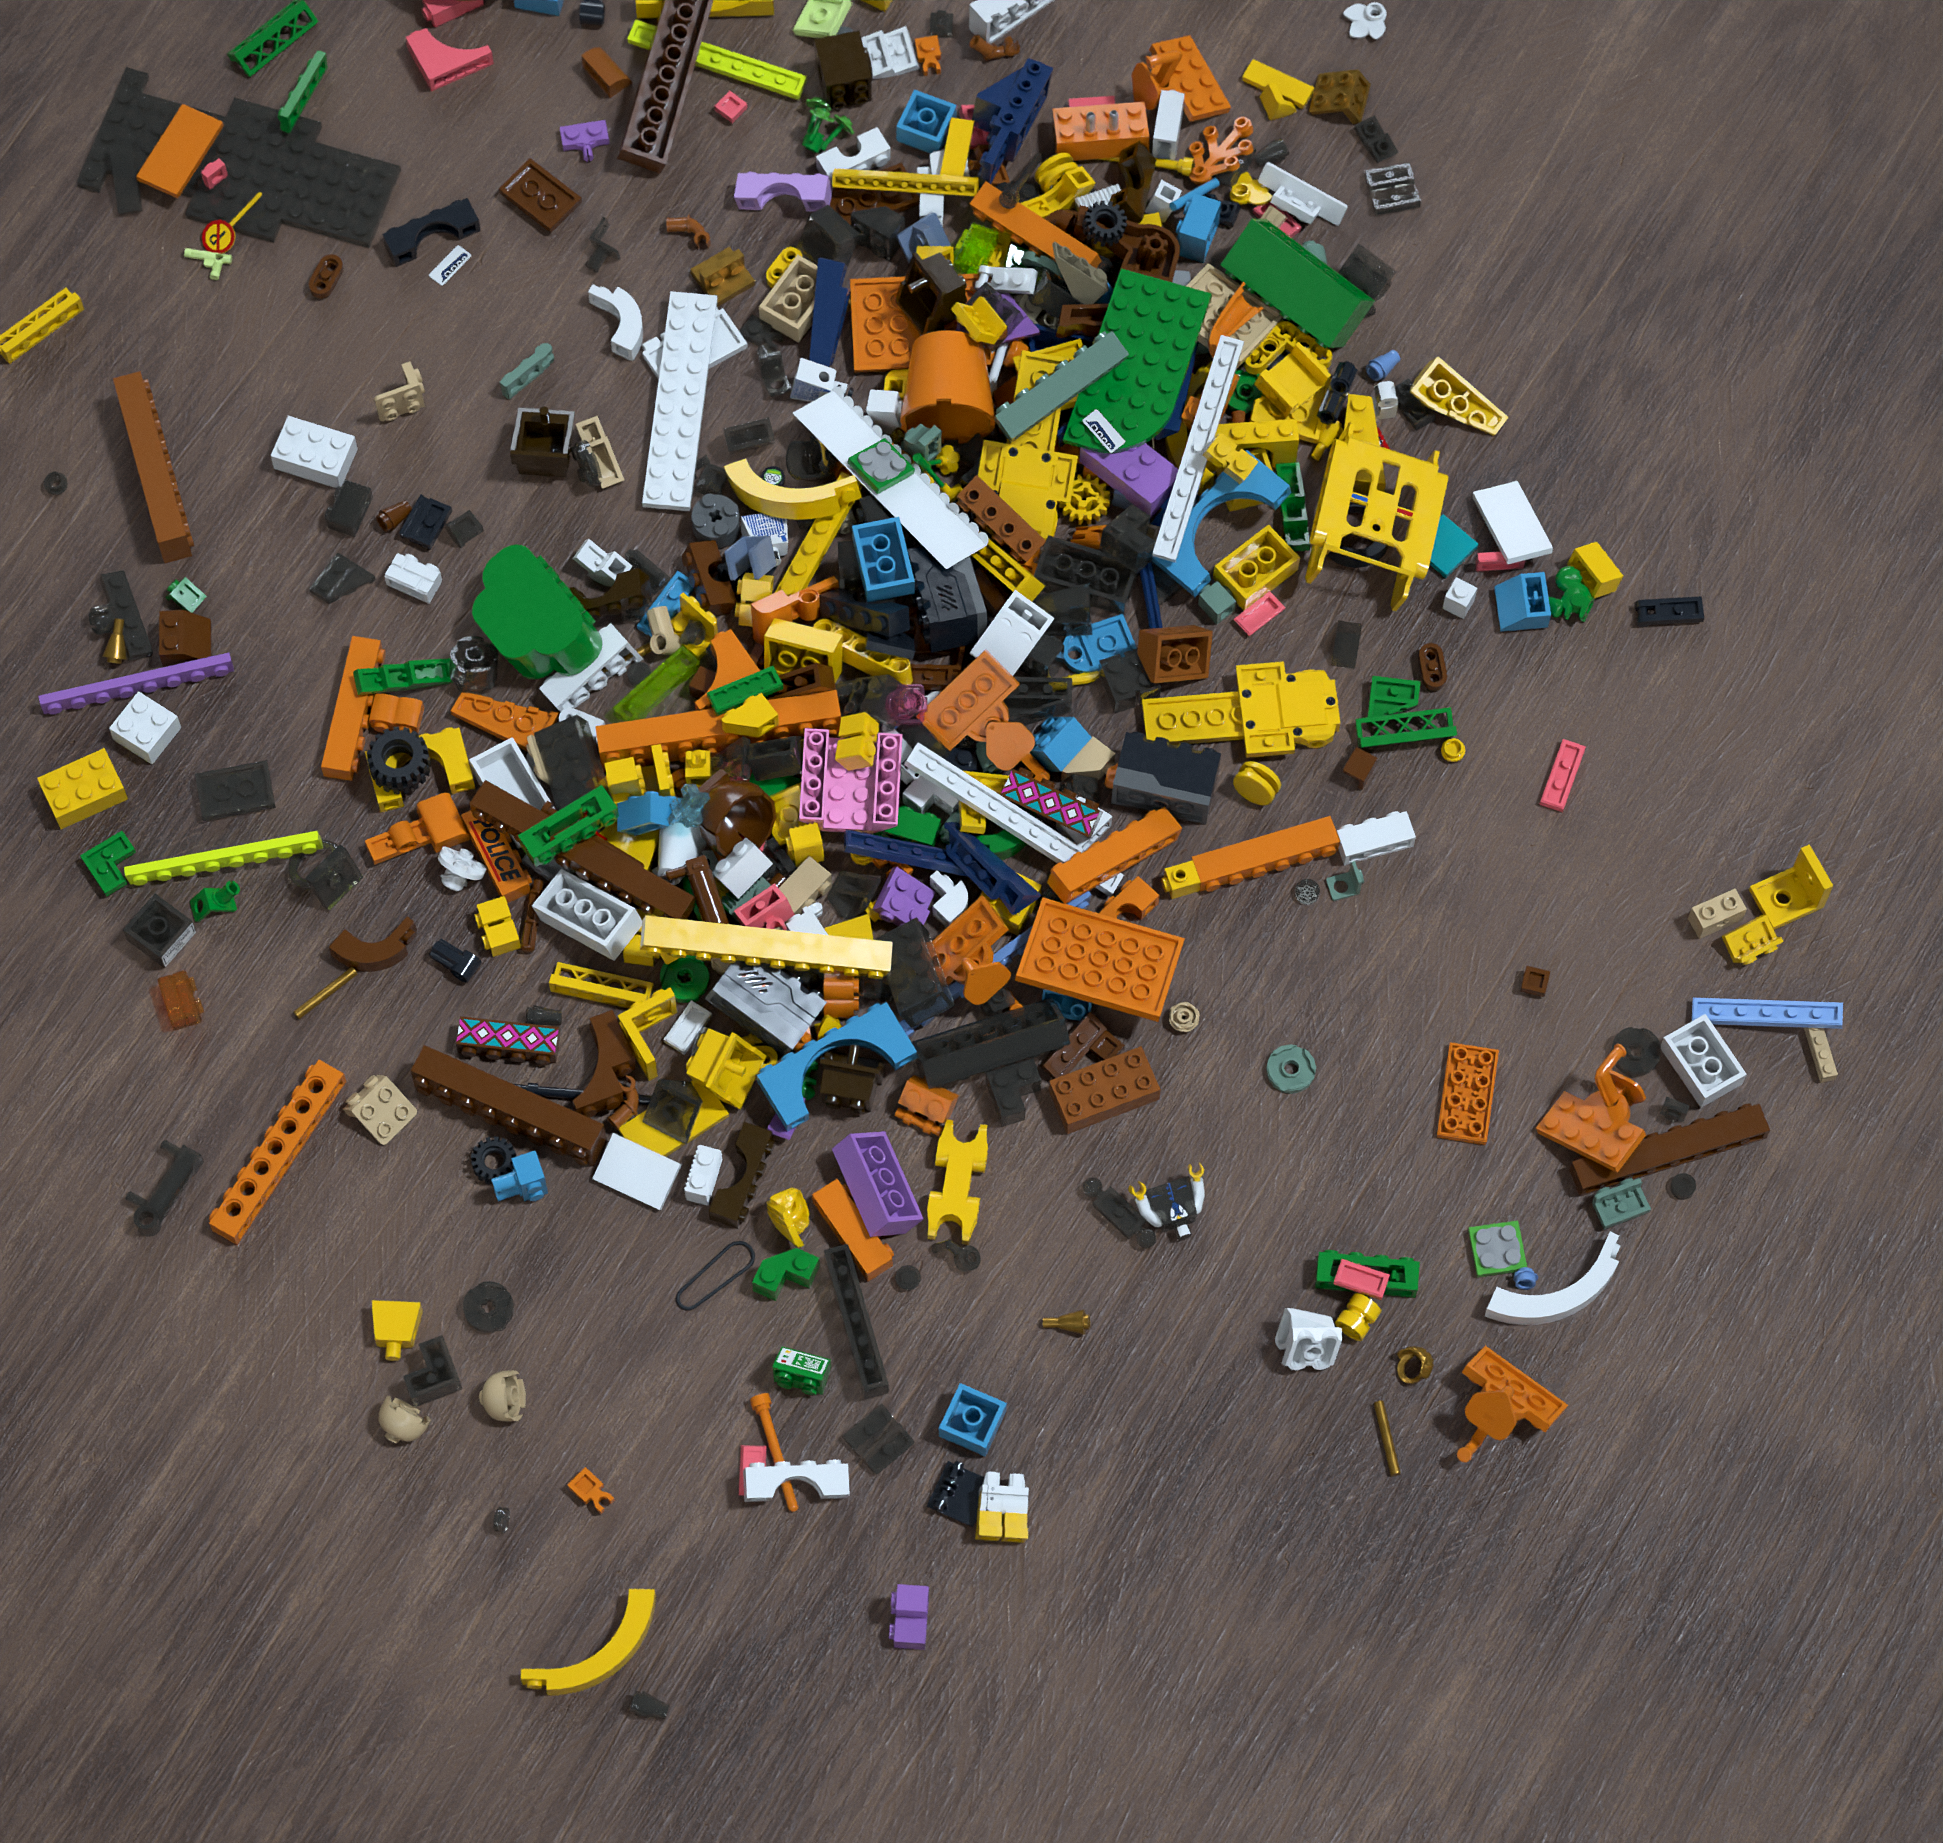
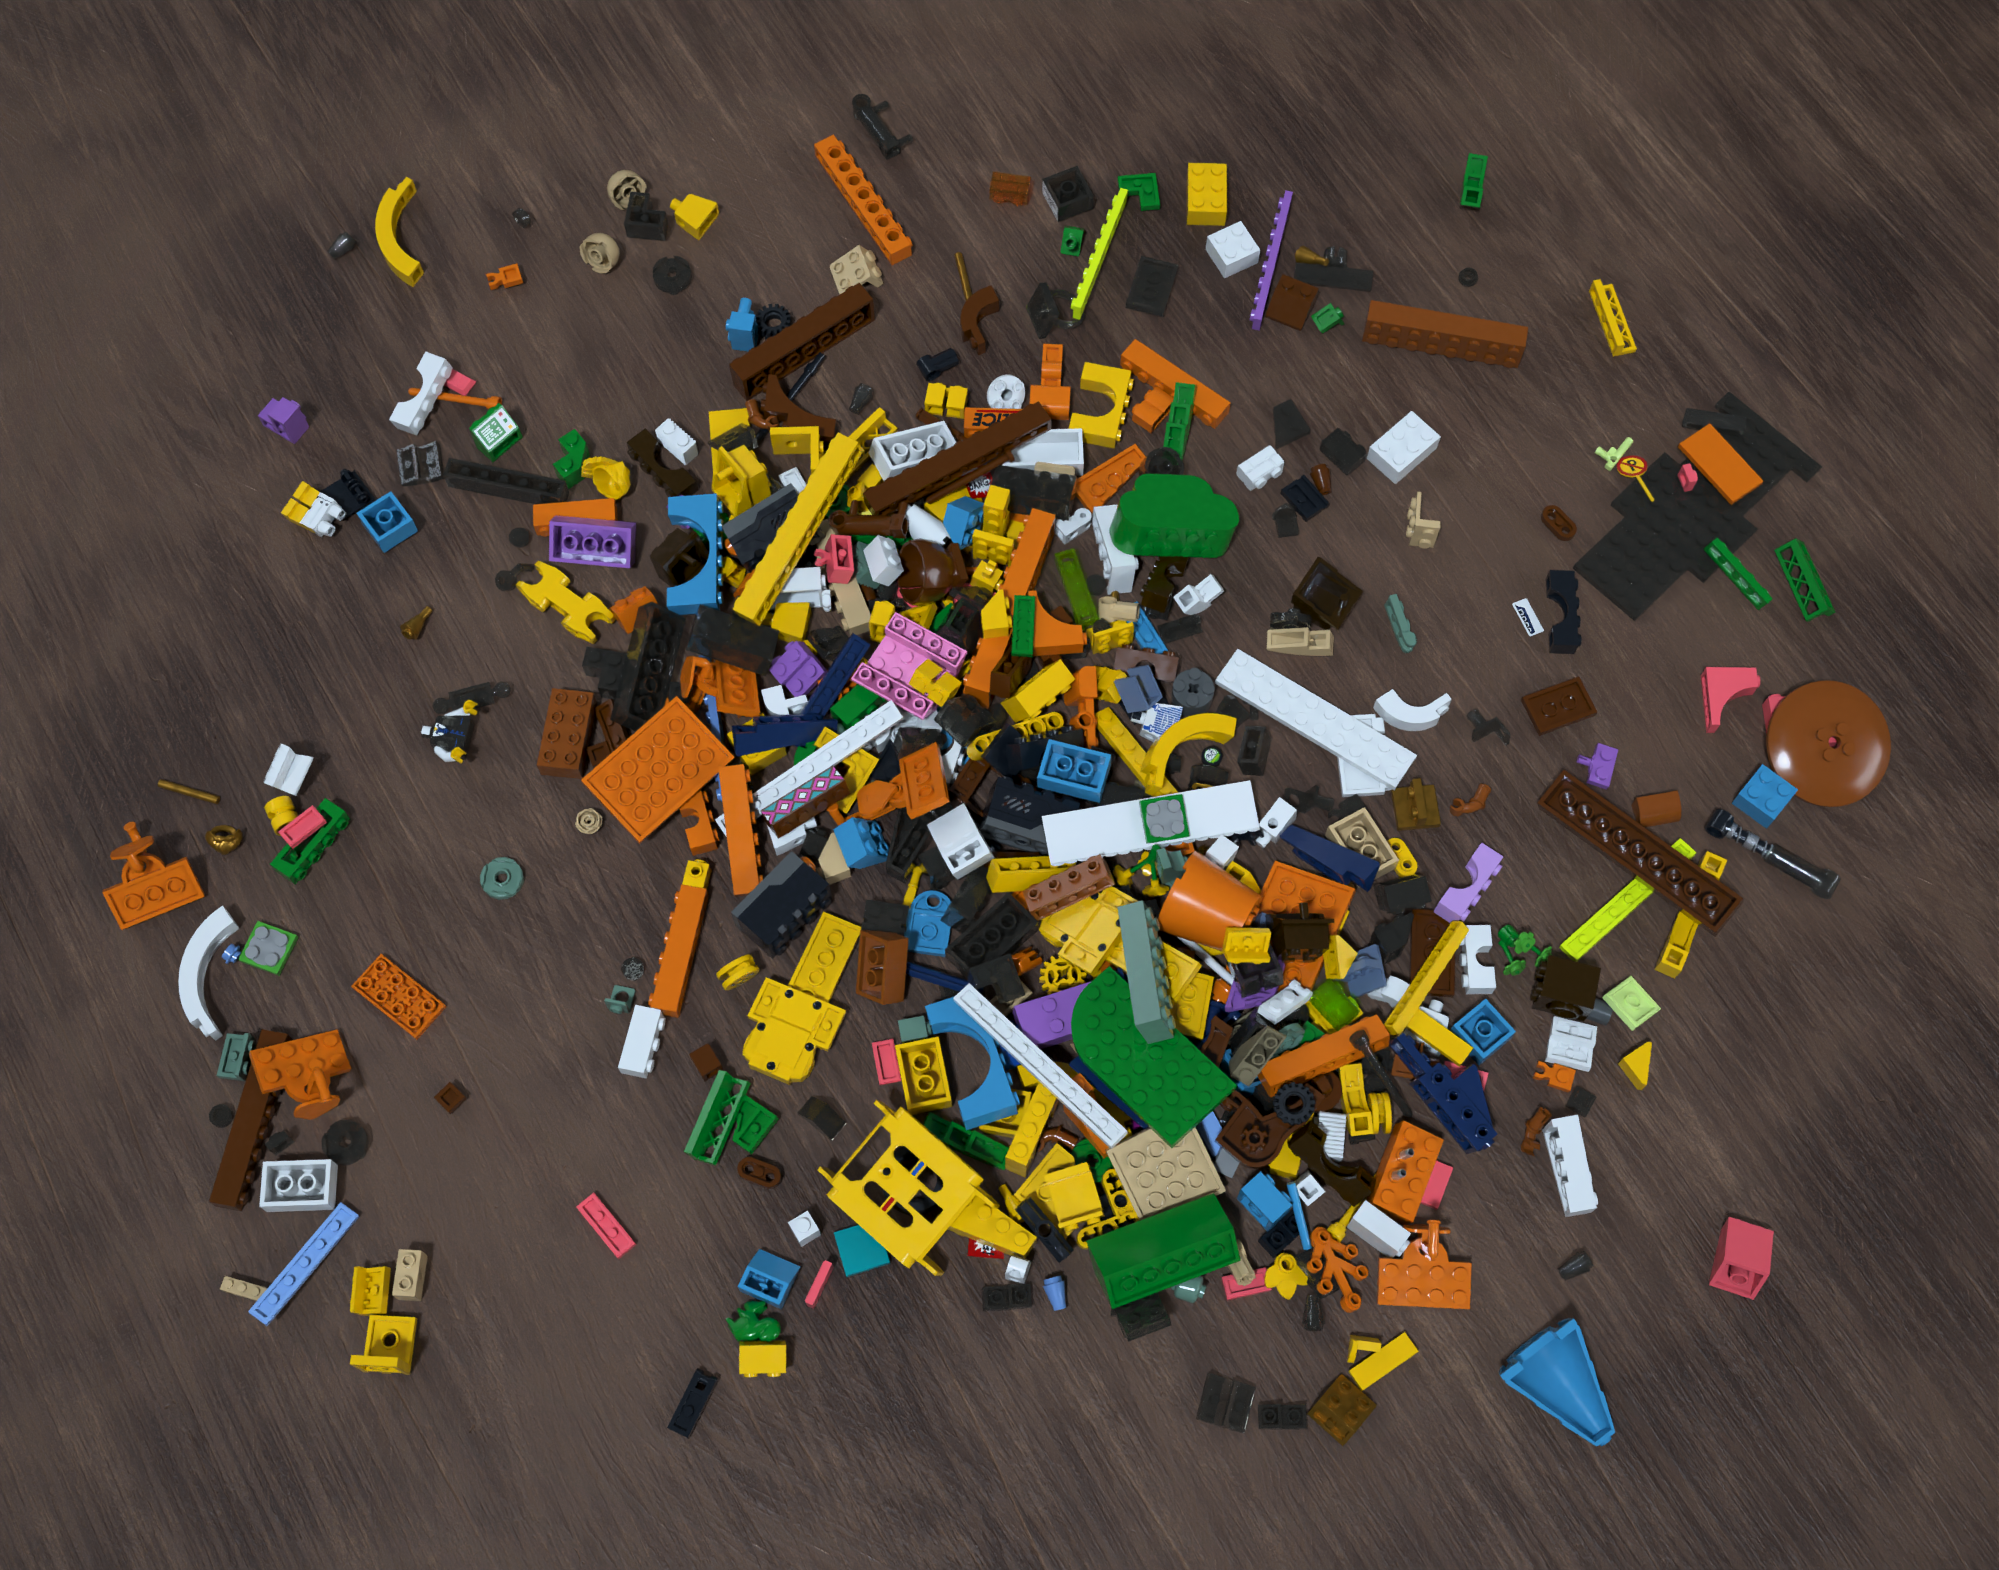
camera: 120 degrees right, 0 degrees up
(398, 778) = (1110, 367): black tyre -> none
(508, 1040) = (855, 368): reddish brown brick -> none
(536, 840) = (973, 420): green brick -> none
(637, 1171) = (707, 403): white tile -> none
(688, 809) = (942, 534): clear light blue hips -> none
(722, 1285) = (614, 420): black piece -> none
(731, 106) = (1575, 888): coral plate -> none
(905, 702) = (945, 732): clear pink piece -> none
(1103, 431) = (1095, 997): white sticker -> none
(1223, 450) = (1015, 1069): yellow piece -> none
(1232, 317) = (1155, 1174): orange animal -> none
(1300, 197) = (1251, 1308): white bracket -> none
(1364, 22) = (1410, 1477): white plate -> none
(1450, 394) = (993, 1329): yellow wedge -> none
(1453, 750) = (677, 1147): yellow plate -> none
(1512, 522) = (845, 1311): white tile -> none

